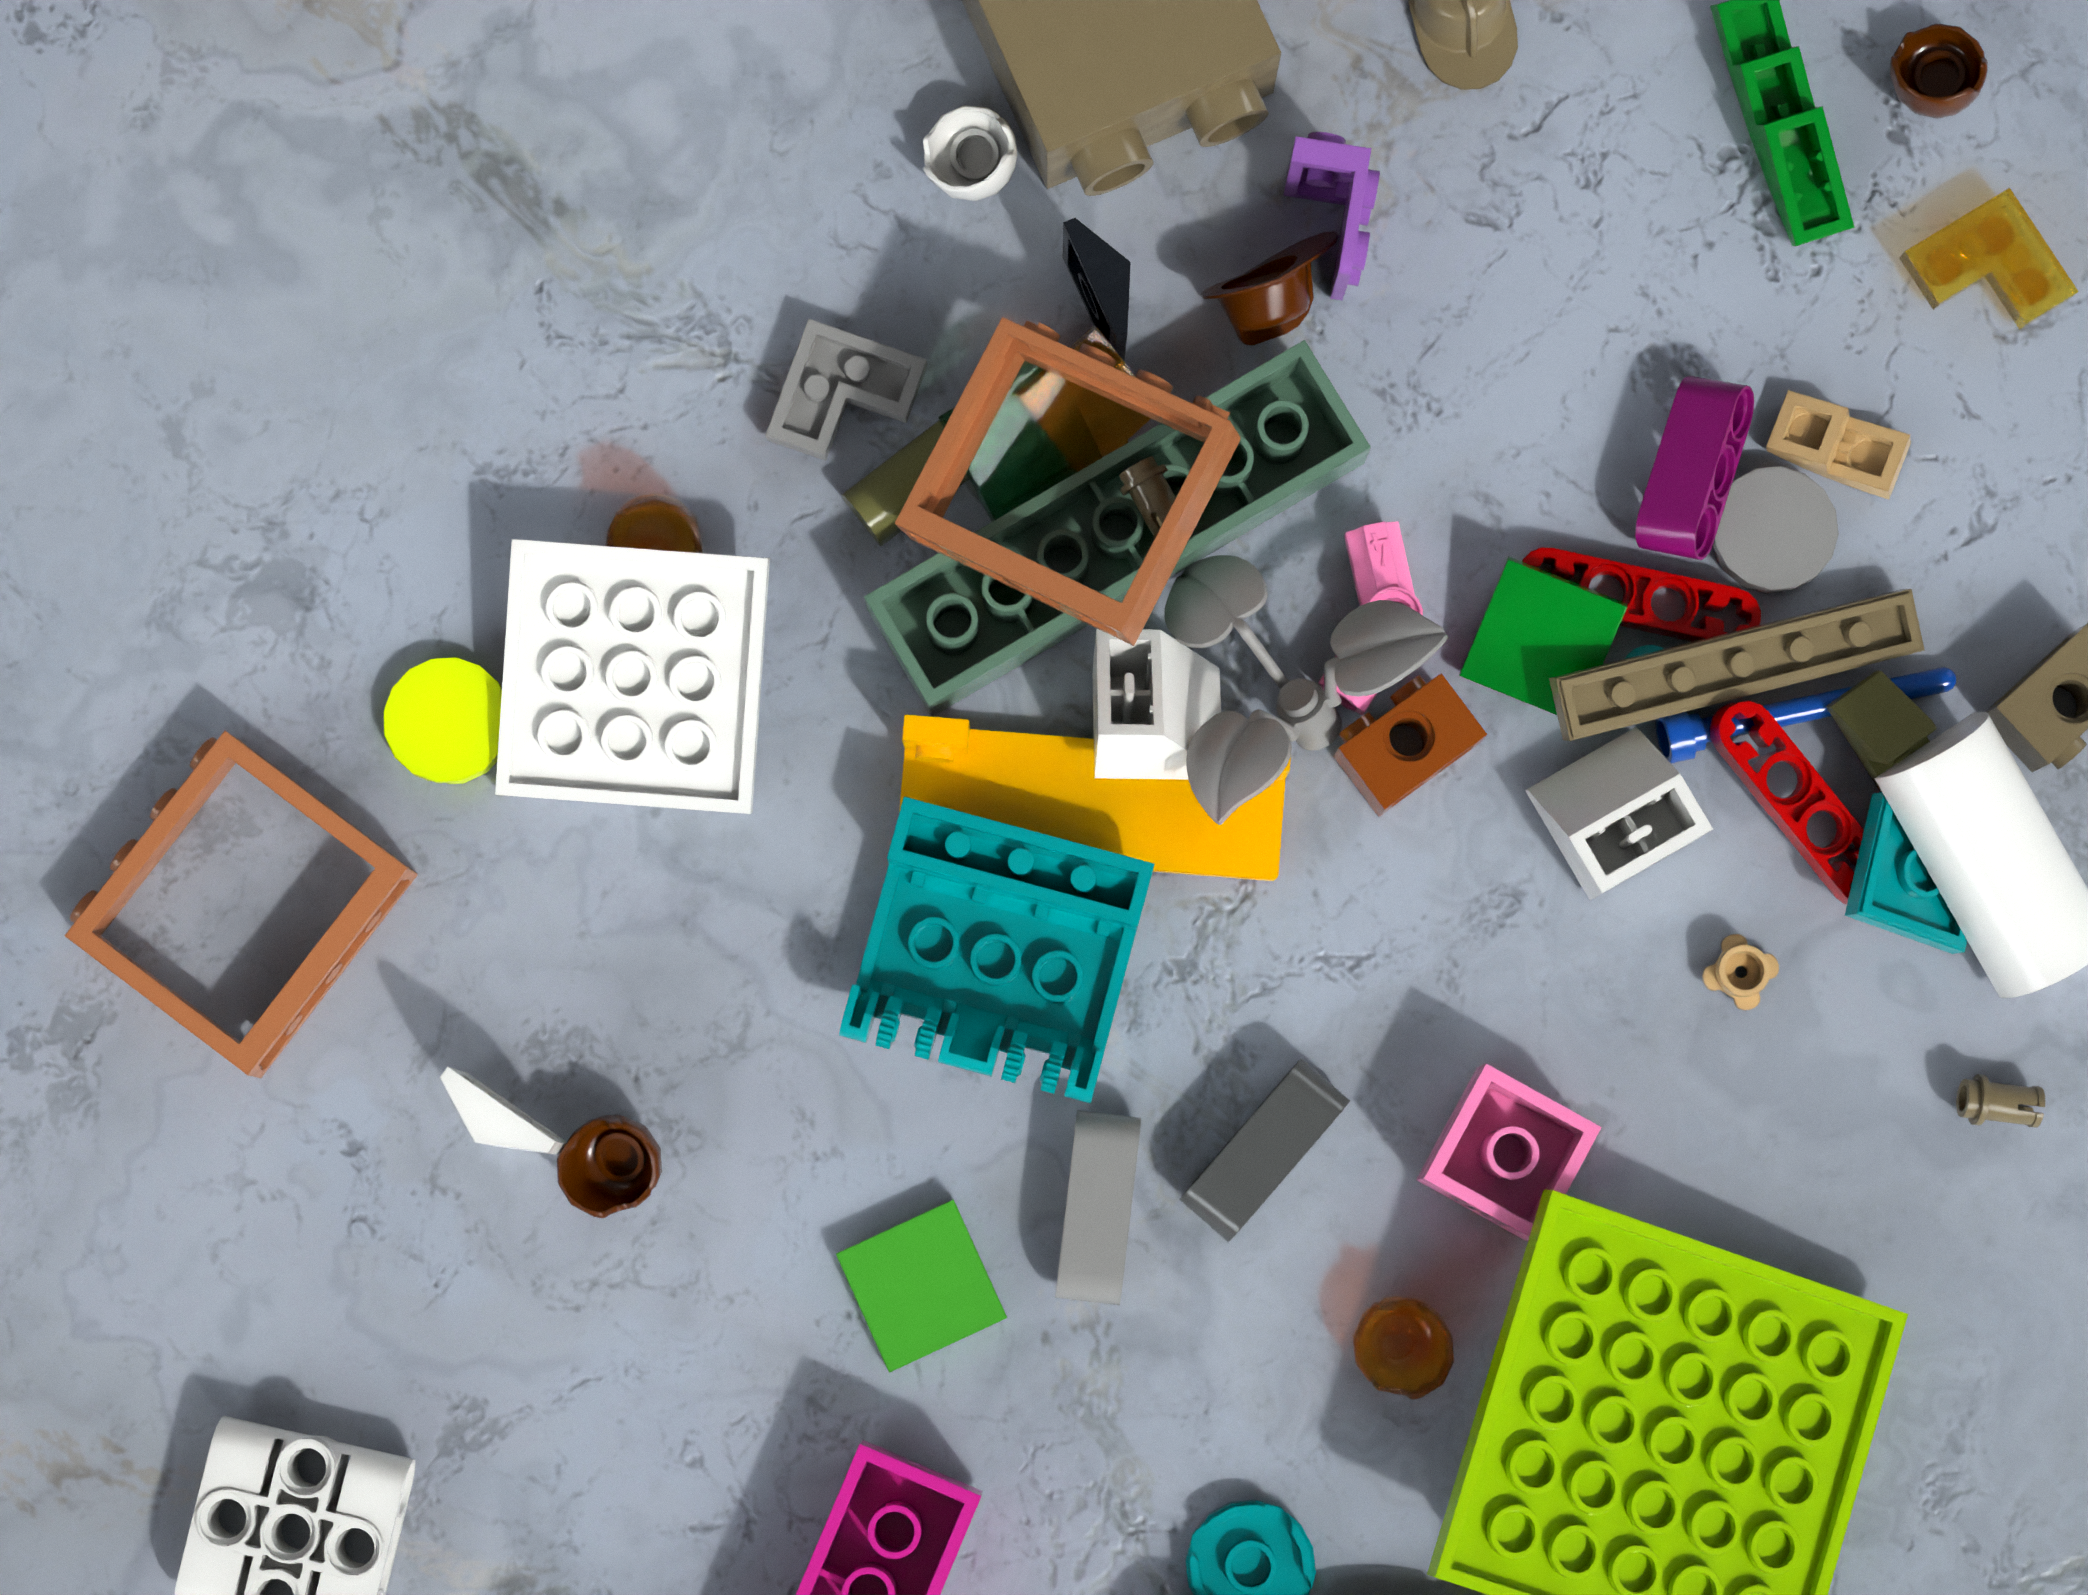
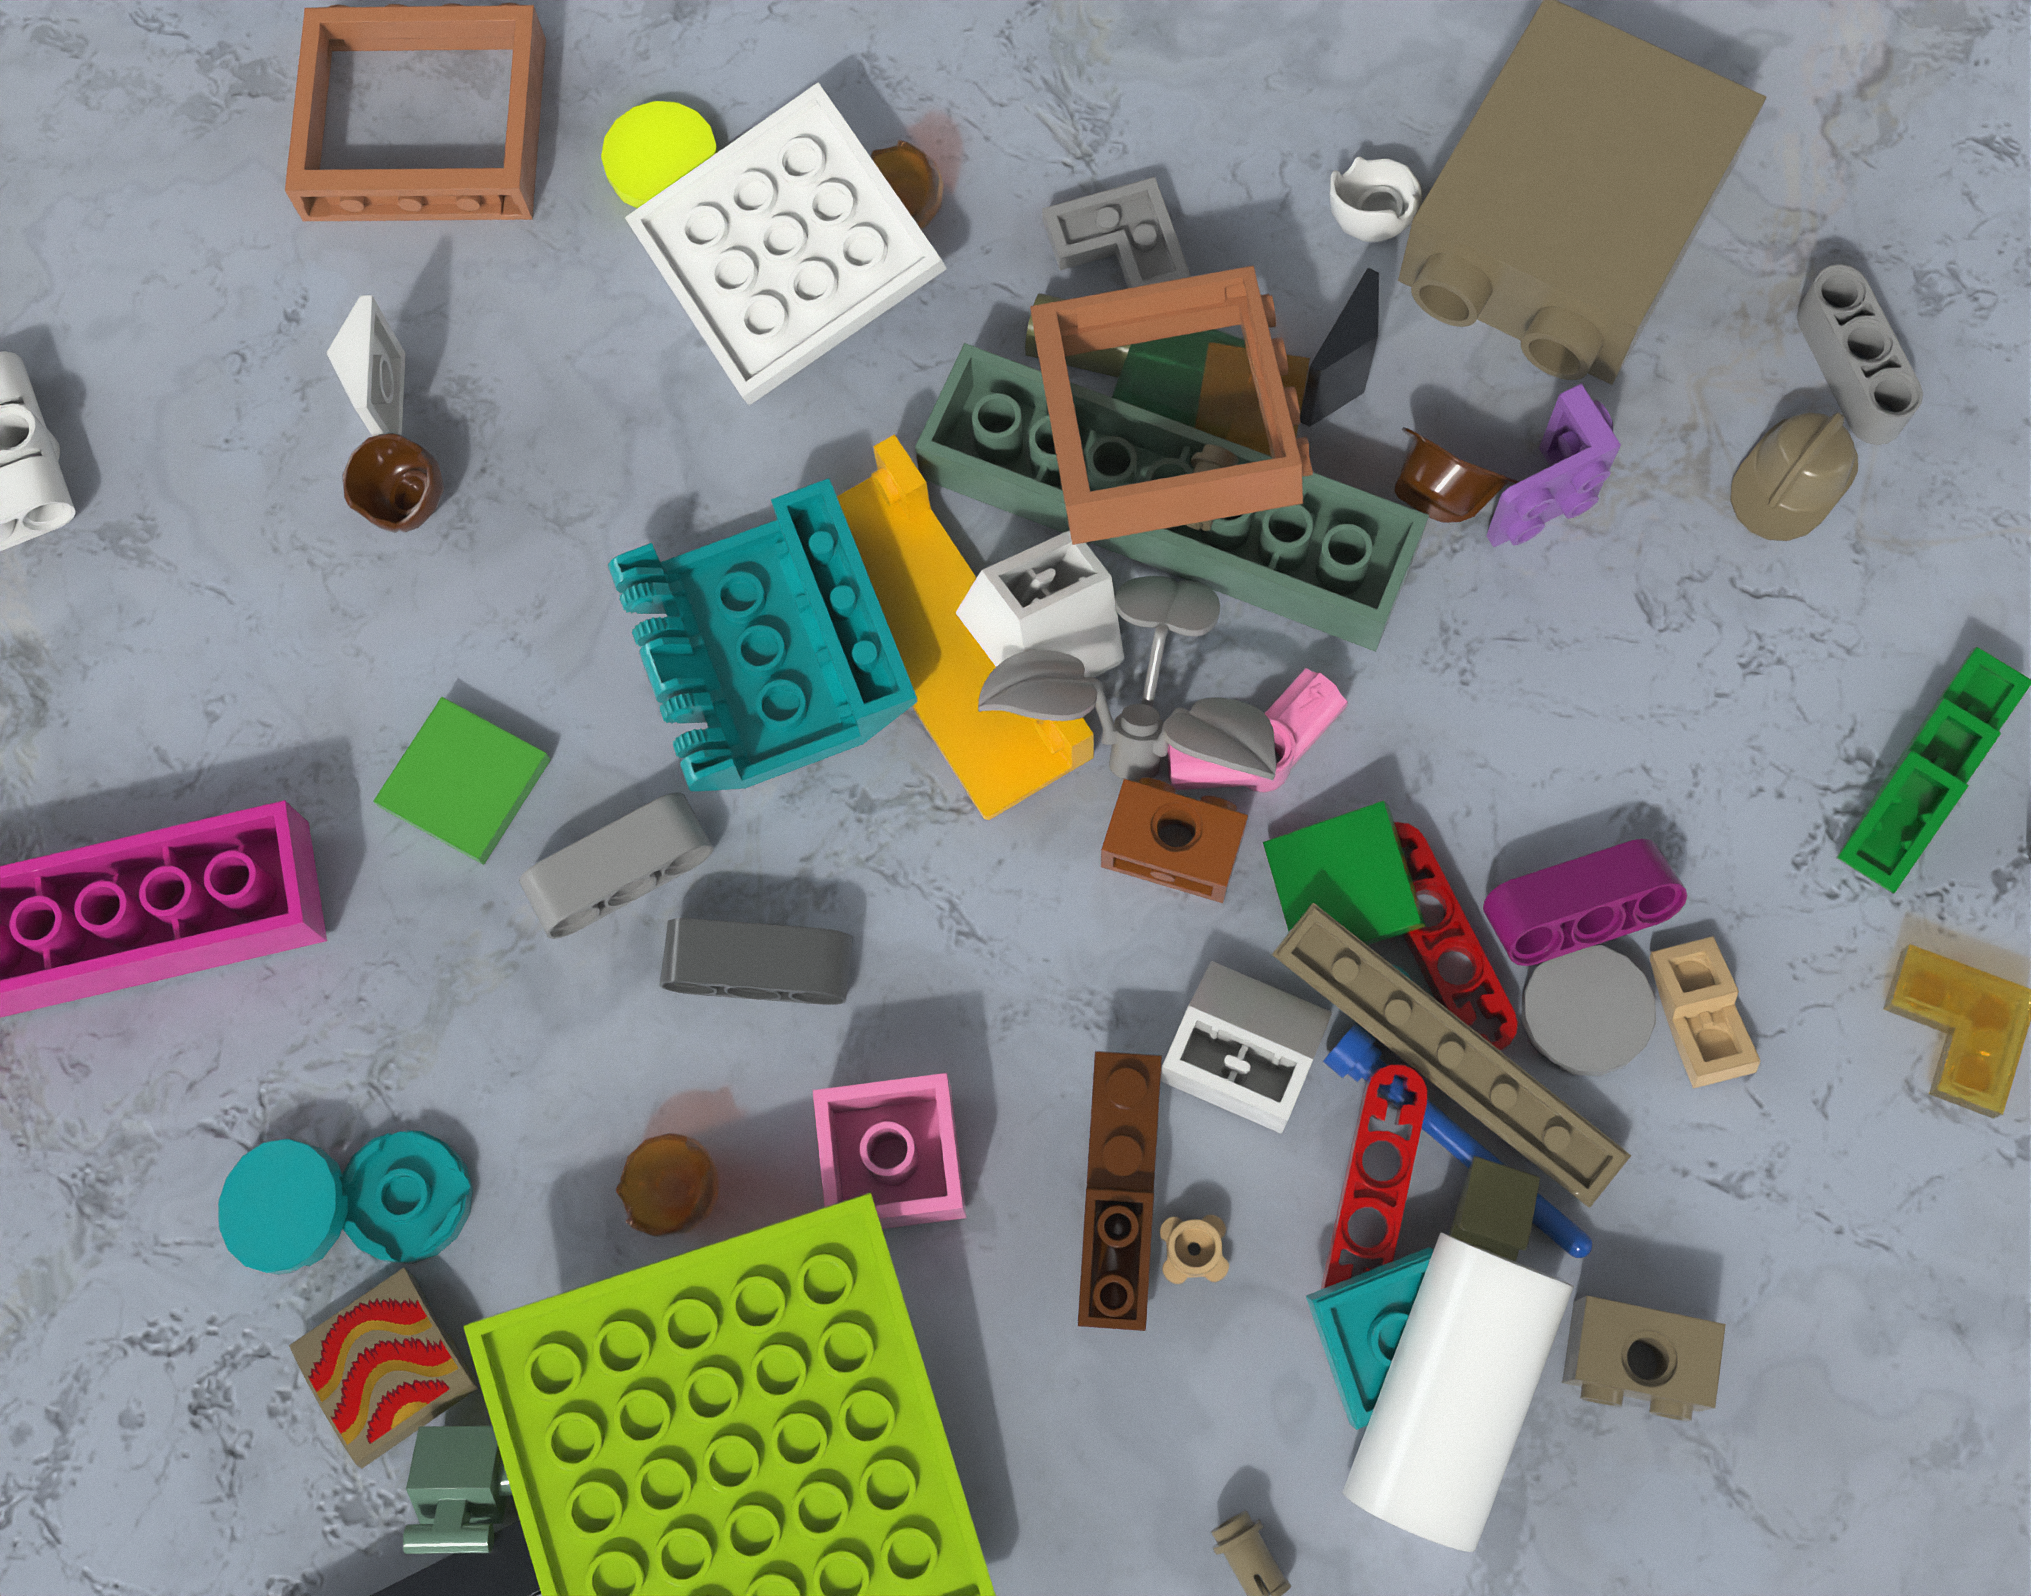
camera: 60 degrees right, 10 degrees down
(1659, 996) = (1120, 1191): none -> reddish brown slope

